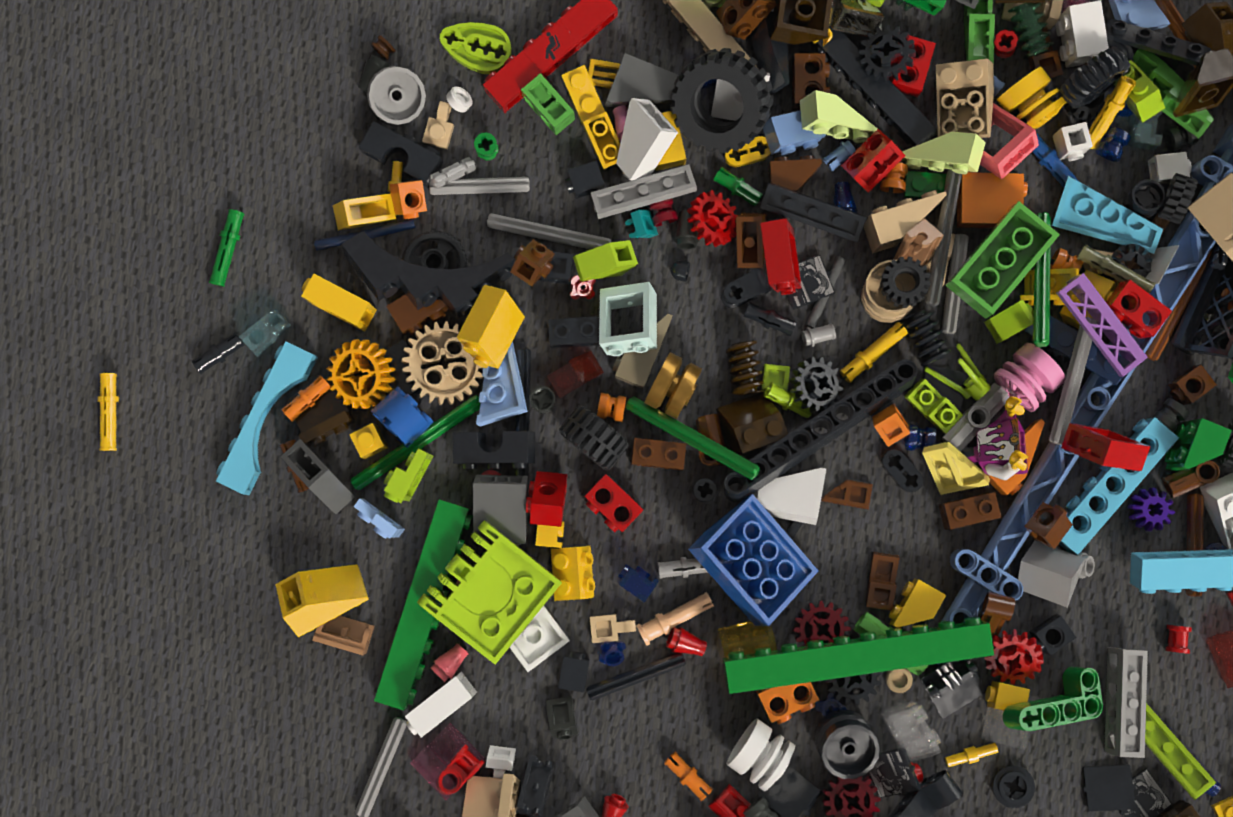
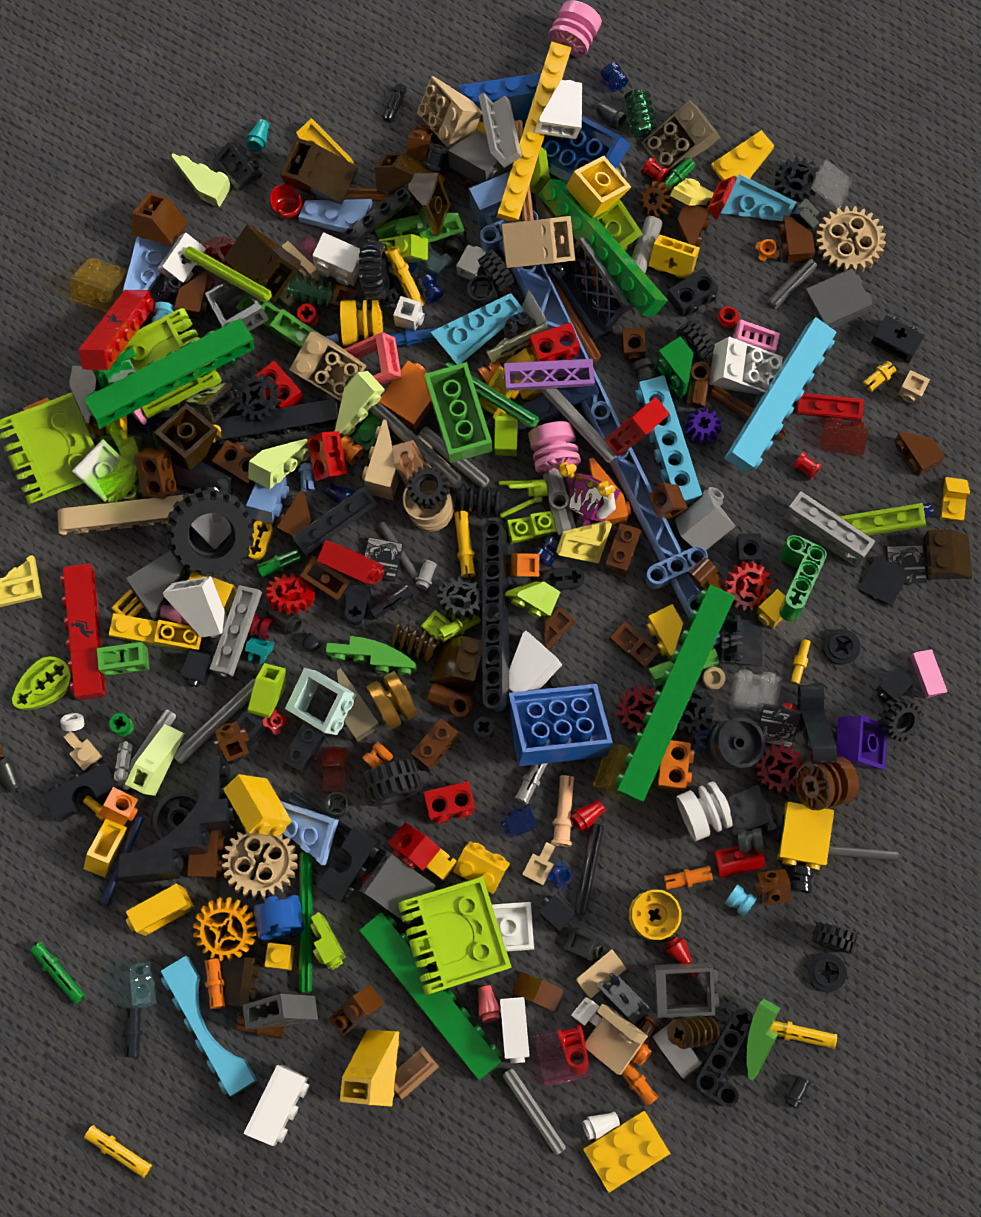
camera: 55 degrees left, 10 degrees down
(235, 530) = (277, 1106): none -> white slope
(366, 544) = (356, 1010): none -> reddish brown slope
(380, 95) = (34, 779): light grey wheel -> none
(383, 524) = (351, 984): light blue plate -> none
(471, 202) = (154, 761): none -> yellowish green slope
(491, 700) = (537, 991): none -> reddish brown slope
(545, 749) = (600, 972): none -> tan slope
(627, 784) = (668, 912): none -> yellow wheel
(693, 438) = (438, 710): green axle -> none
(711, 346) = (381, 656): none -> bright green slope
(865, 456) = (536, 597): none -> lime slope

